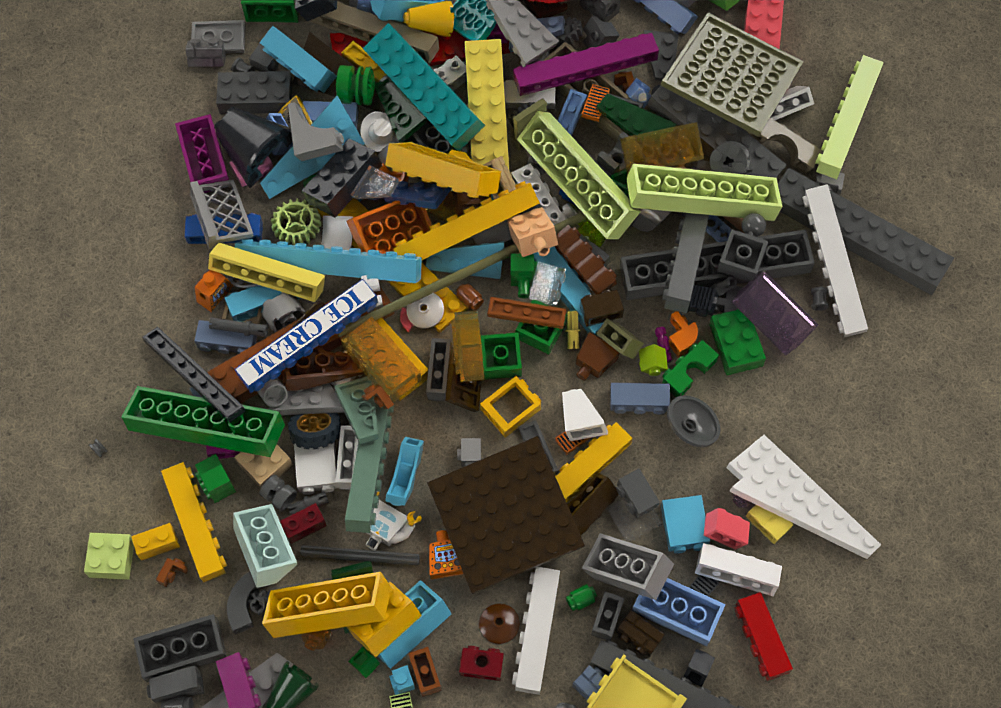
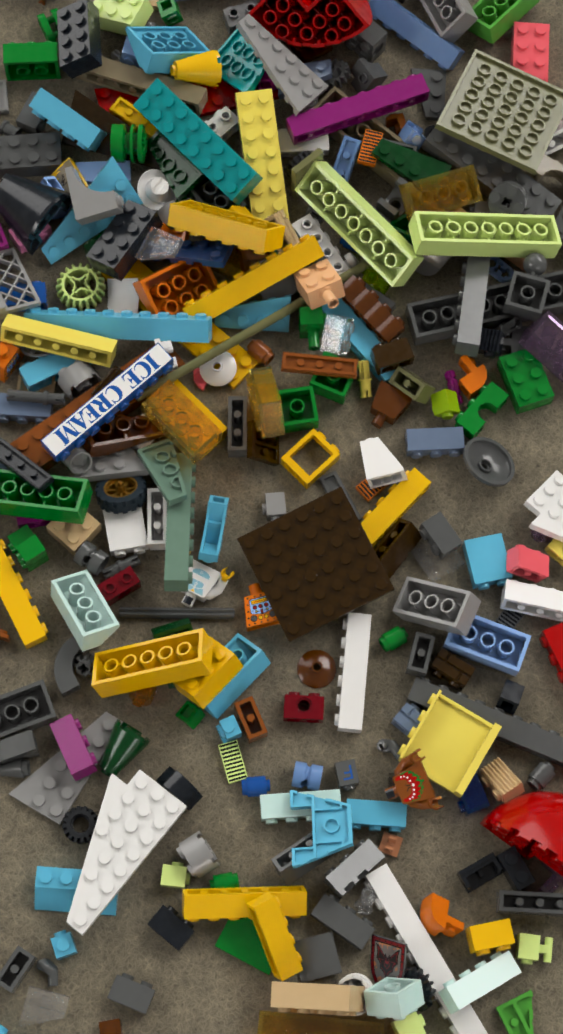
camera: 10 degrees left, 5 degrees up
(381, 397) = (184, 456): dark orange bracket -> none

